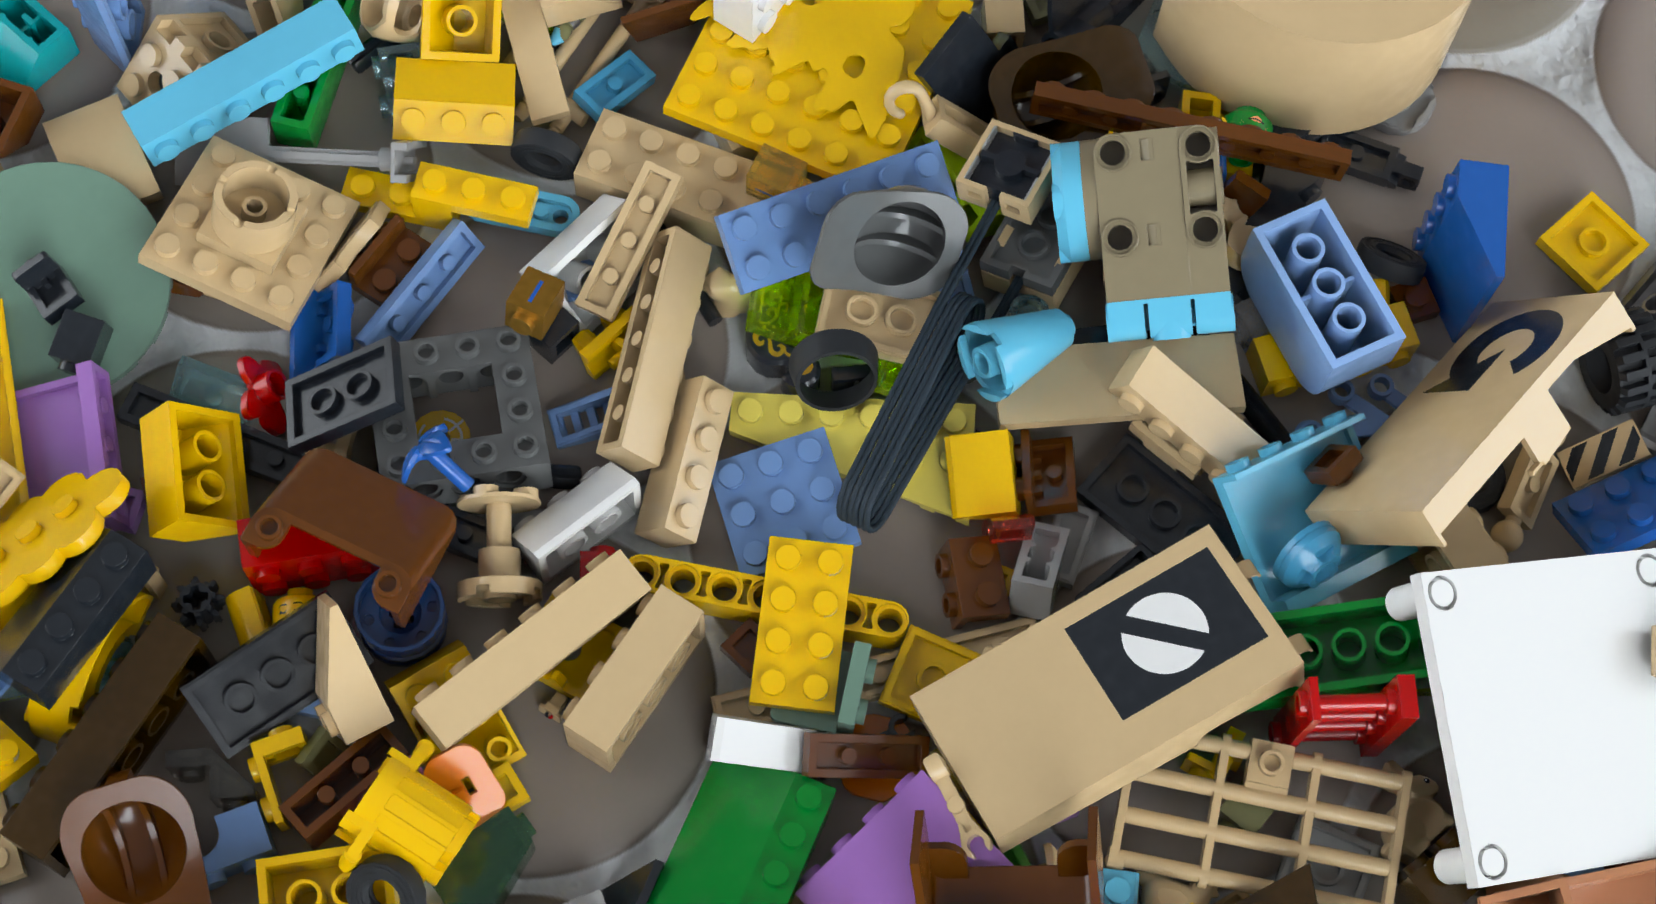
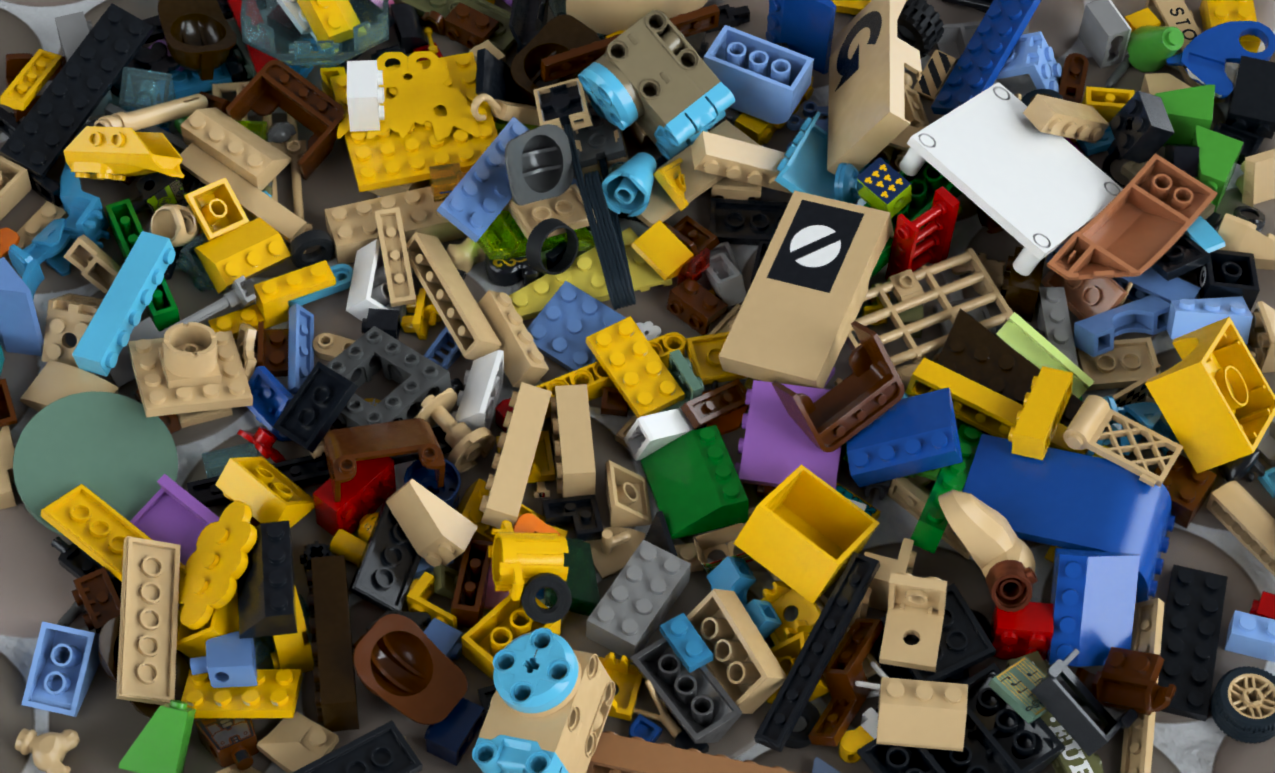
camera: 35 degrees left, 15 degrees down
(48, 286) = (105, 461): black bracket -> none
(79, 340) = (143, 477): black brick -> none
(433, 448) = (387, 394): blue plant -> none
(473, 313) = (335, 345): none -> tan plate
(534, 303) = (373, 310): pearl gold brick -> none
(568, 777) = (578, 510): none -> black plate
(574, 858) = (614, 549): none -> tan shield
(614, 85) = (315, 201): dark azure plate -> none
(646, 801) = (626, 497): none -> tan slope
(877, 563) = (649, 330): none -> white plant
(956, 805) = (762, 373): tan piece -> none
(1073, 383) = (673, 182): none -> yellow tile
(1334, 465) = (824, 141): reddish brown plate -> none
(1338, 611) = (884, 187): none -> piece

